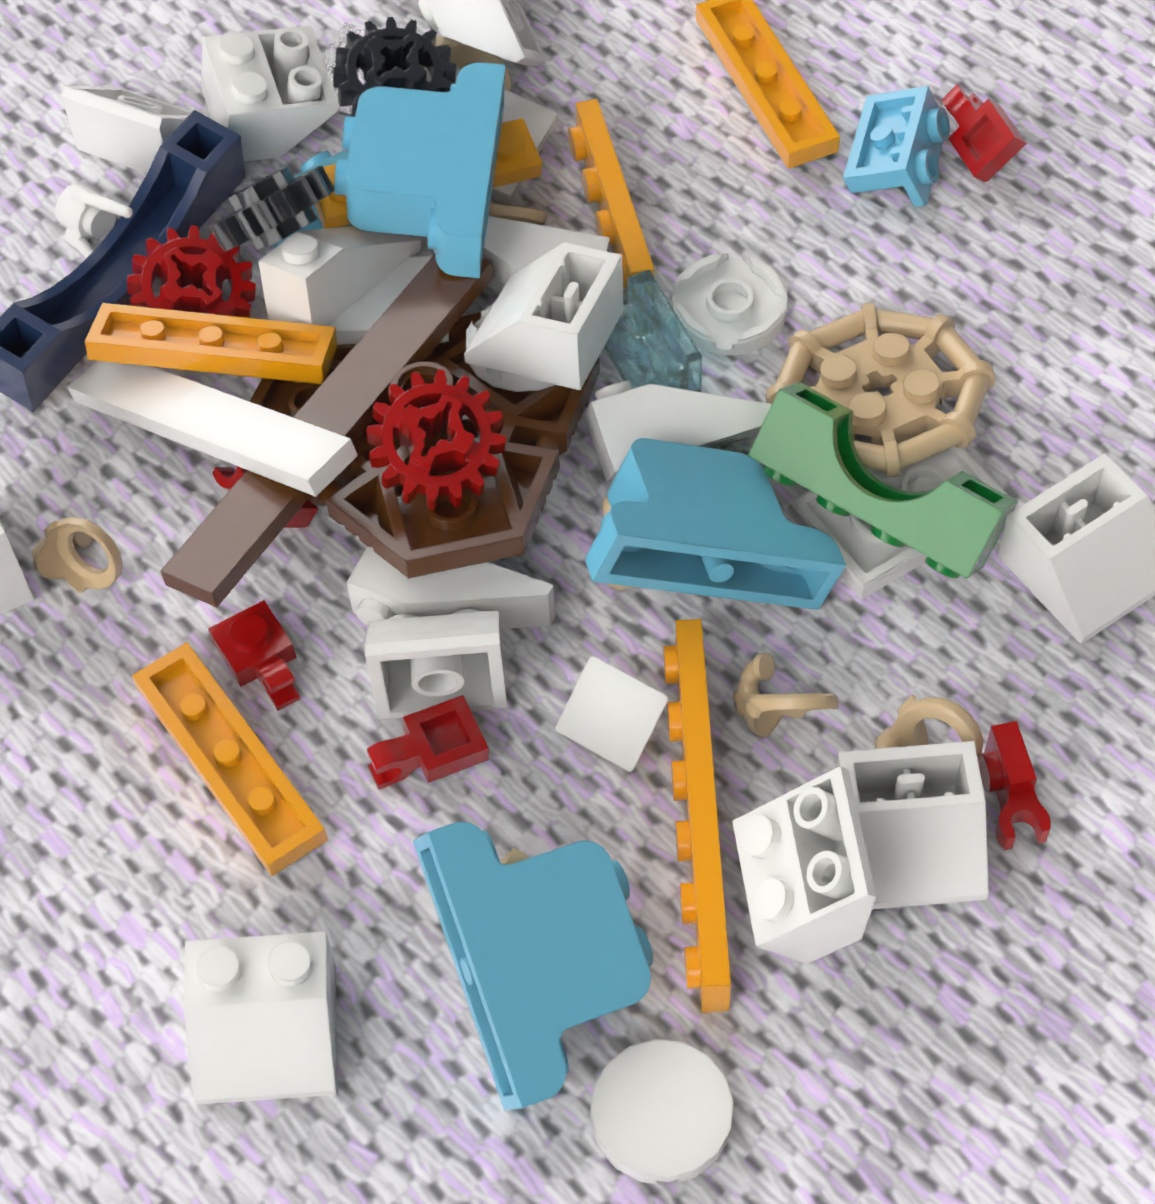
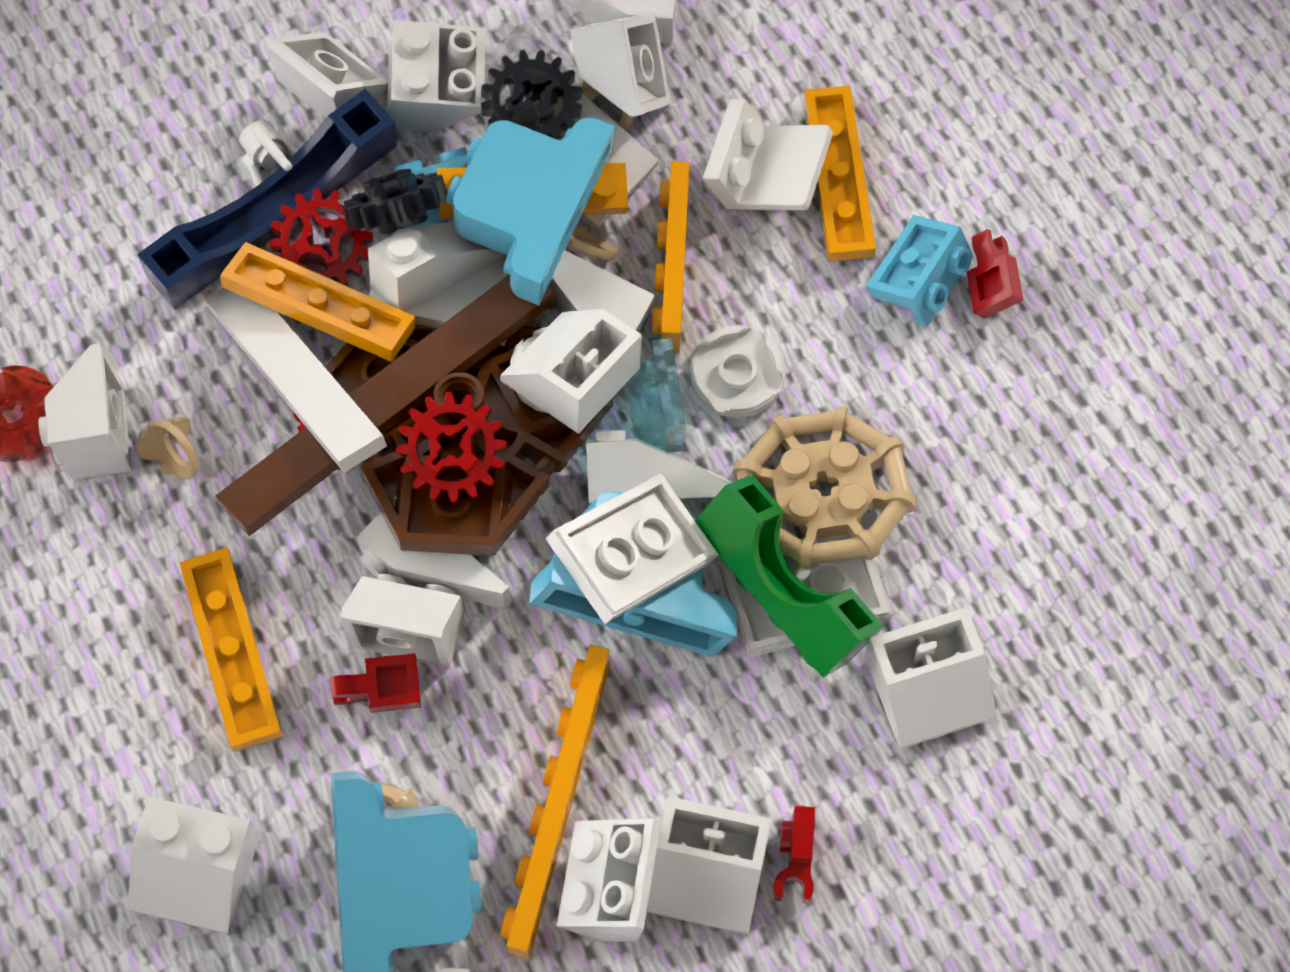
camera: 15 degrees right, 10 degrees up
(258, 649) = (278, 564): red plate -> none
(611, 713) = (521, 700): white sticker -> none
(682, 87) = (764, 164): none -> white bracket
(693, 487) = (632, 548): none -> white tile
(765, 711) = (648, 733): tan piece -> none
(910, 726) = (740, 787): tan piece -> none

